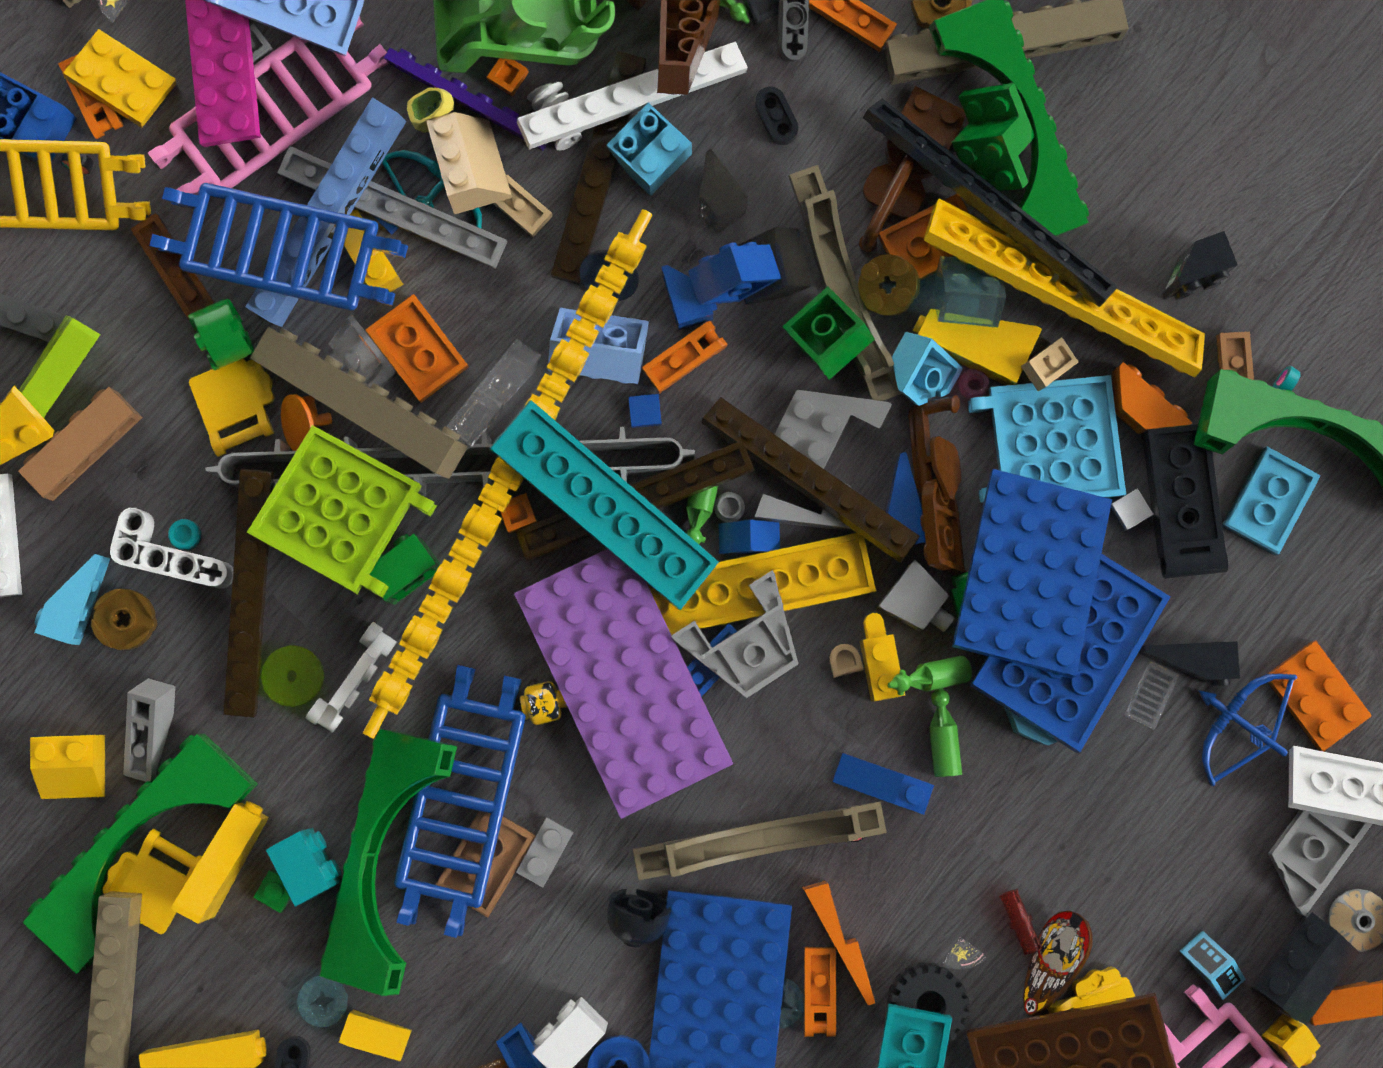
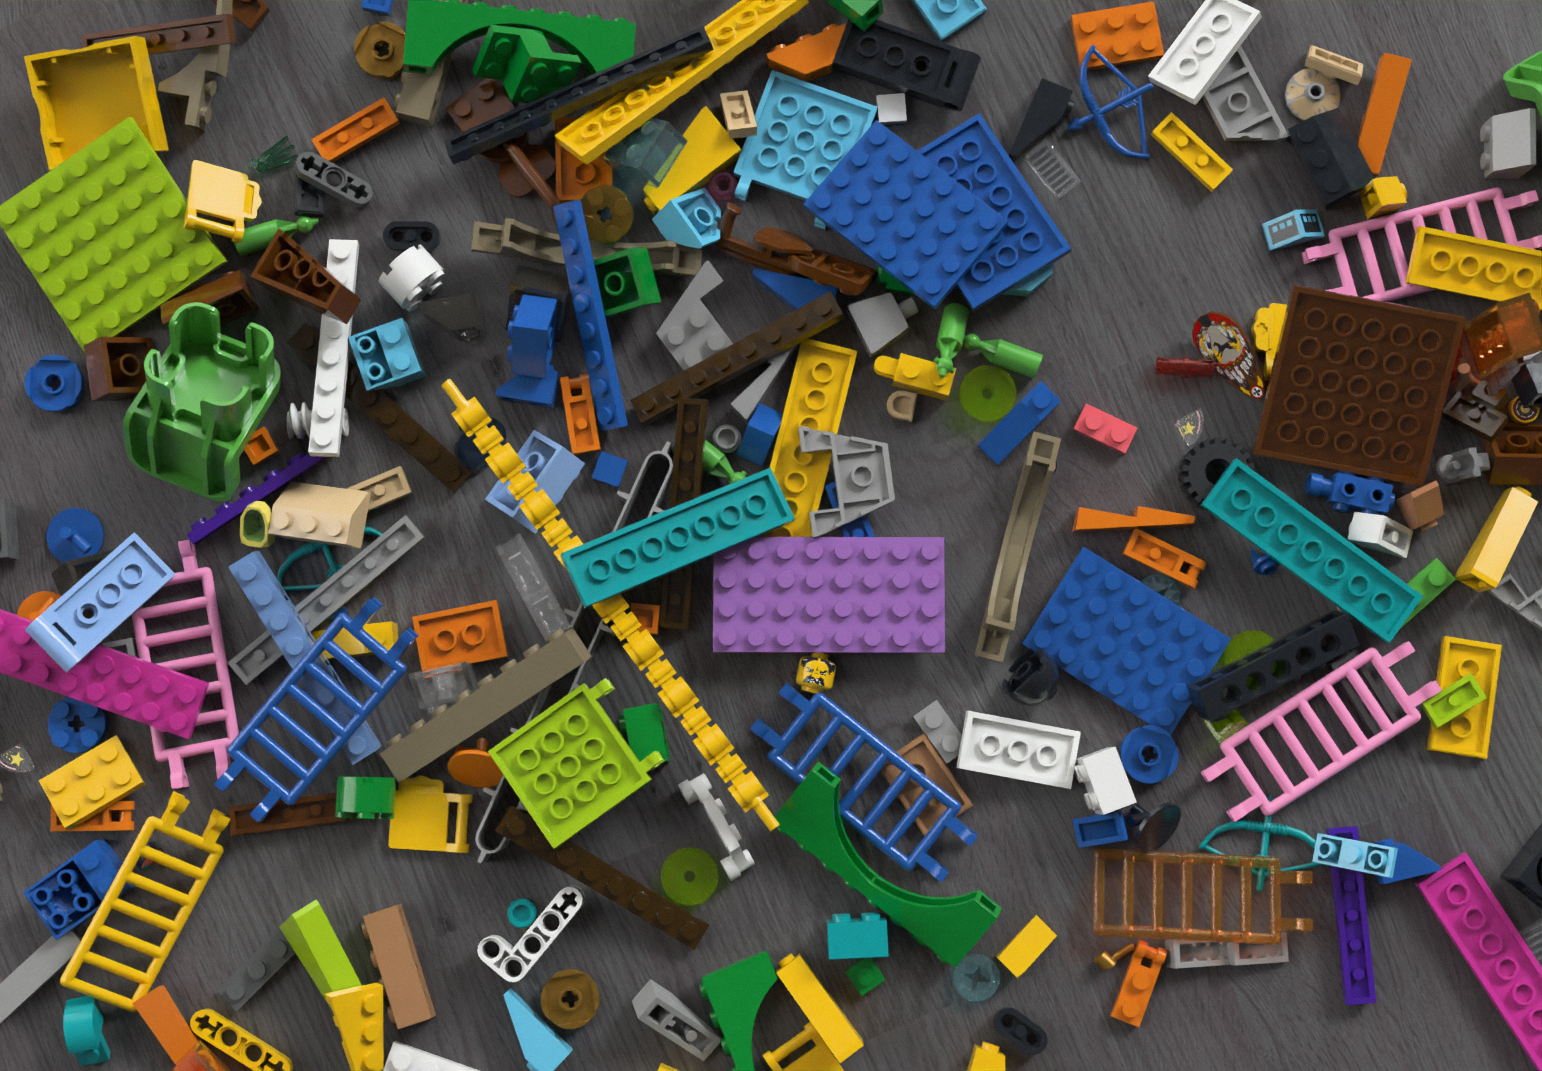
camera: 60 degrees left, 0 degrees up
(153, 34) = (63, 733): none -> blue plate
(561, 937) = (1018, 749): none -> white plate
(736, 134) = (412, 277): none -> white brick
(782, 317) = (590, 315): none -> blue plate
(913, 742) = (992, 379): none -> clear neon green plate
(919, 870) = (1105, 429): none -> coral plate
(1239, 825) = (1191, 152): none -> yellow plate

